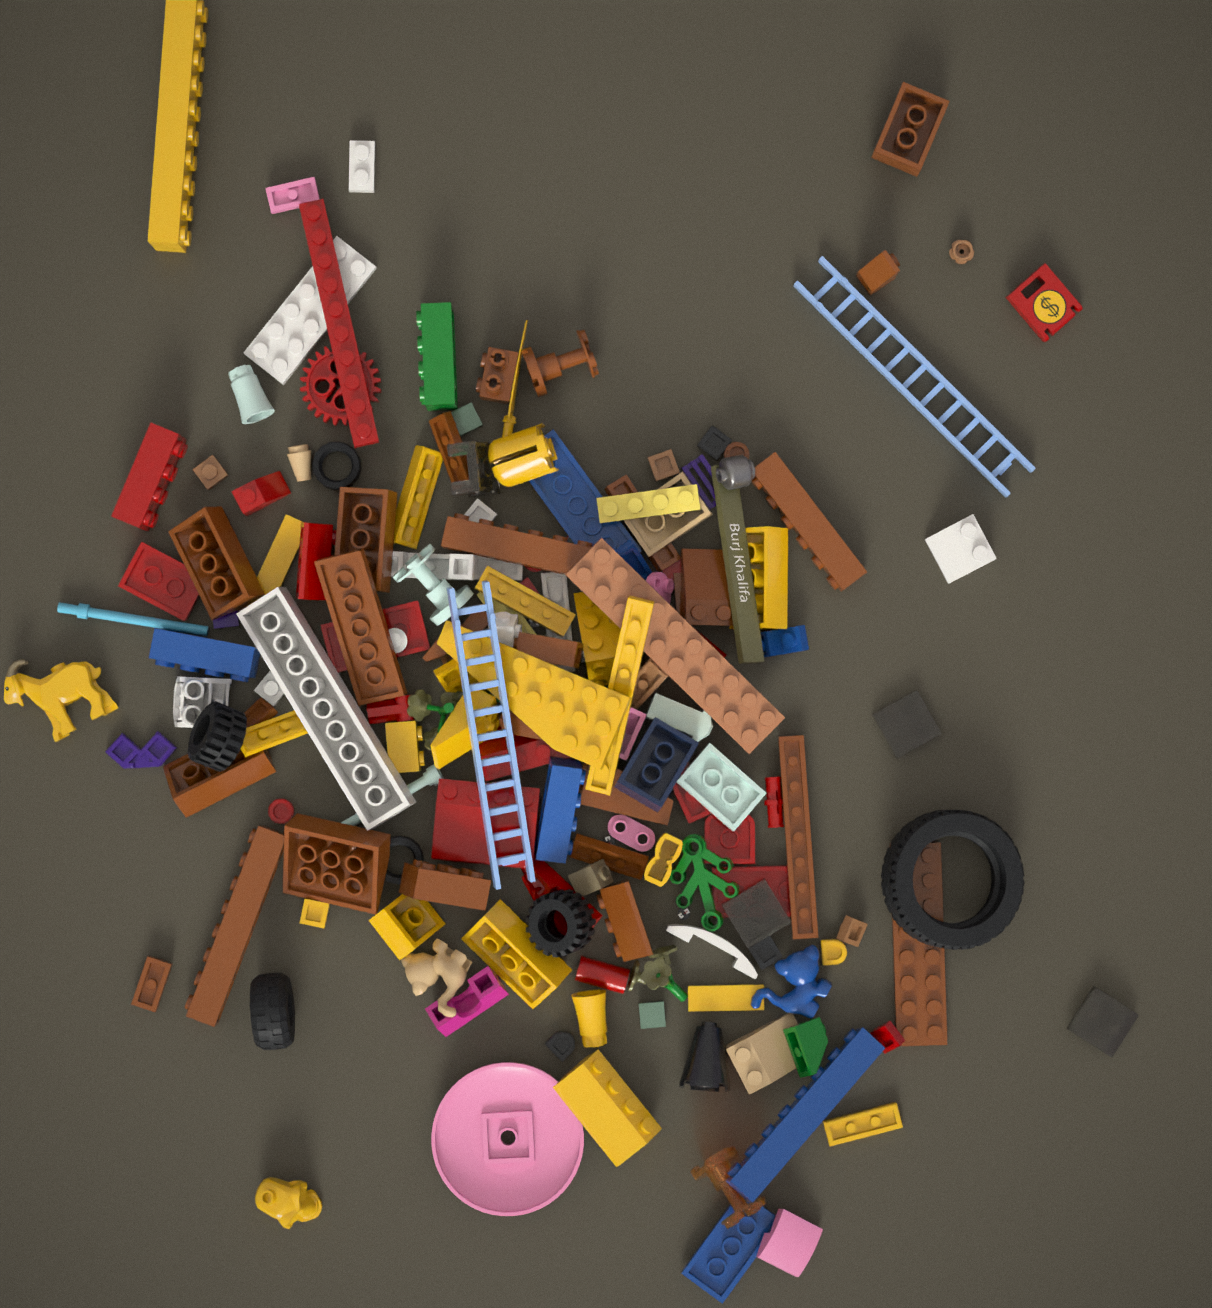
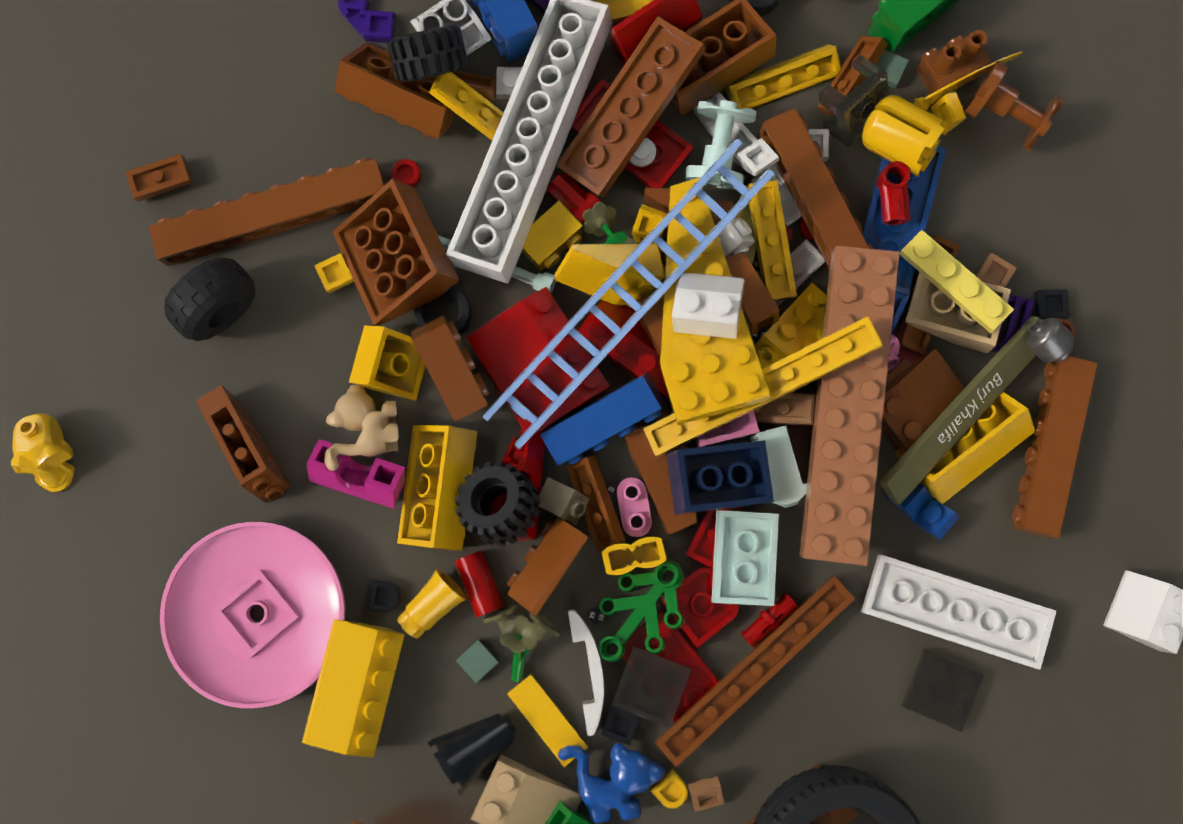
camera: 55 degrees right, 5 degrees down
(387, 1063) = (242, 445): none -> dark orange slope
(529, 405) = (949, 109): none -> yellow plate
(539, 689) = (707, 305): none -> white slope
(560, 497) = (894, 196): none -> red piece
(864, 673) = (959, 611): none -> white plate

